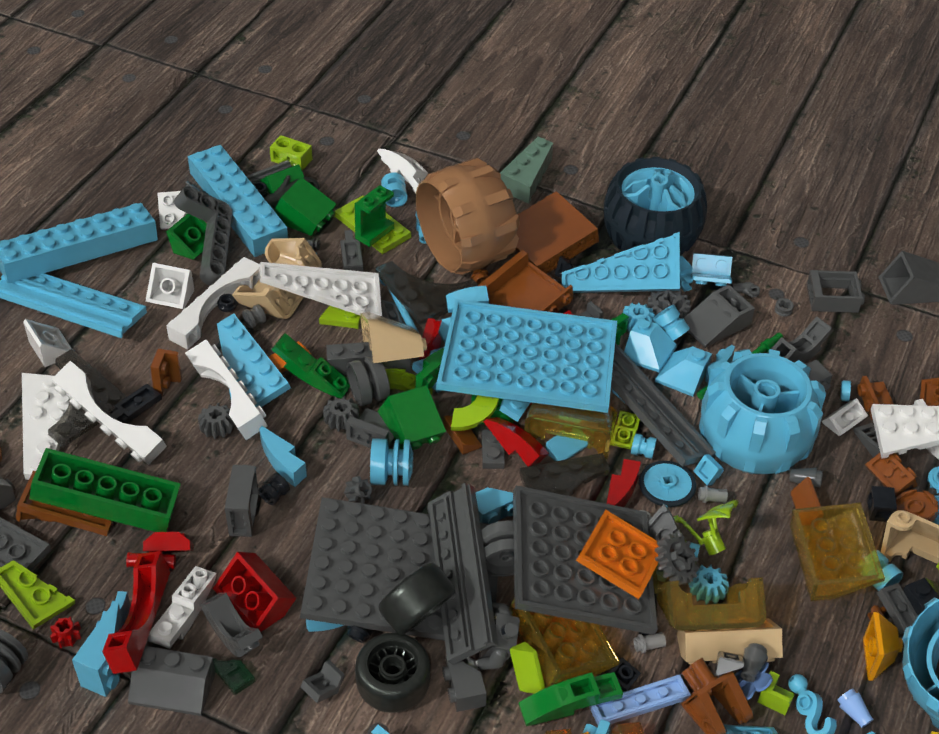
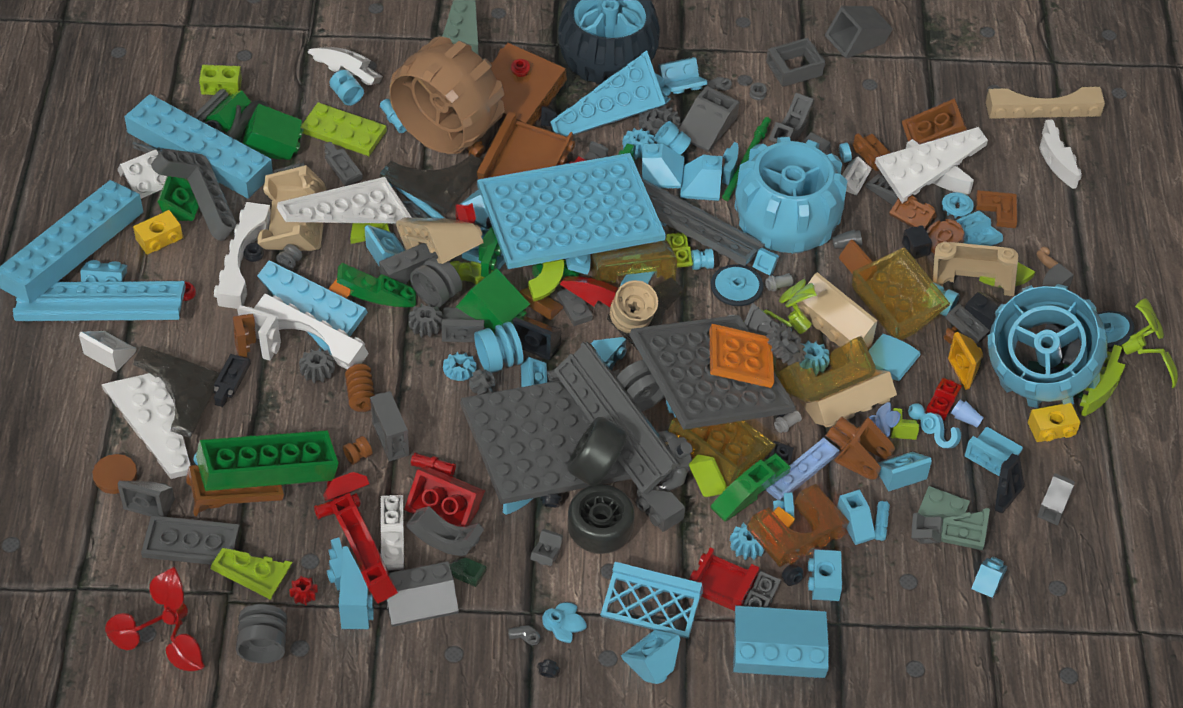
camera: 25 degrees left, 5 degrees up
(89, 278) = (103, 272): none -> medium azure bracket
(139, 439) = (261, 406): white arch -> none
(149, 318) = (190, 292): none -> red plate
(159, 254) = (158, 232): none -> yellow brick
(170, 286) = (190, 254): white slope -> none
(186, 375) = (266, 330): none -> white bracket
(207, 510) = (357, 450): none -> dark orange wheel
(241, 451) = (359, 387): none -> dark orange piece
(266, 553) = (422, 461): none -> red pin
(274, 489) = (408, 405): black wheel -> none
(282, 457) = (396, 377): medium azure slope -> none
(342, 473) = (458, 373): none -> medium azure gear
(344, 329) = (381, 243): none -> medium azure slope
(371, 216) = (351, 129): green panel -> none
(416, 499) = (533, 372): none -> medium azure slope
(435, 464) = (537, 337): none -> black slope
(473, 294) = (487, 169): medium azure slope -> none
(540, 455) = (635, 296): none -> tan wheel
(555, 215) = (520, 71): none -> red plate
(623, 485) = (701, 297): red slope -> none
(728, 662) = (860, 414): slope -> none
(754, 659) = (878, 404): dark grey cone -> none
(755, 548) = (837, 314): none -> tan slope
(797, 614) = (893, 356): none -> medium azure slope
(837, 681) = (944, 398): none -> red slope

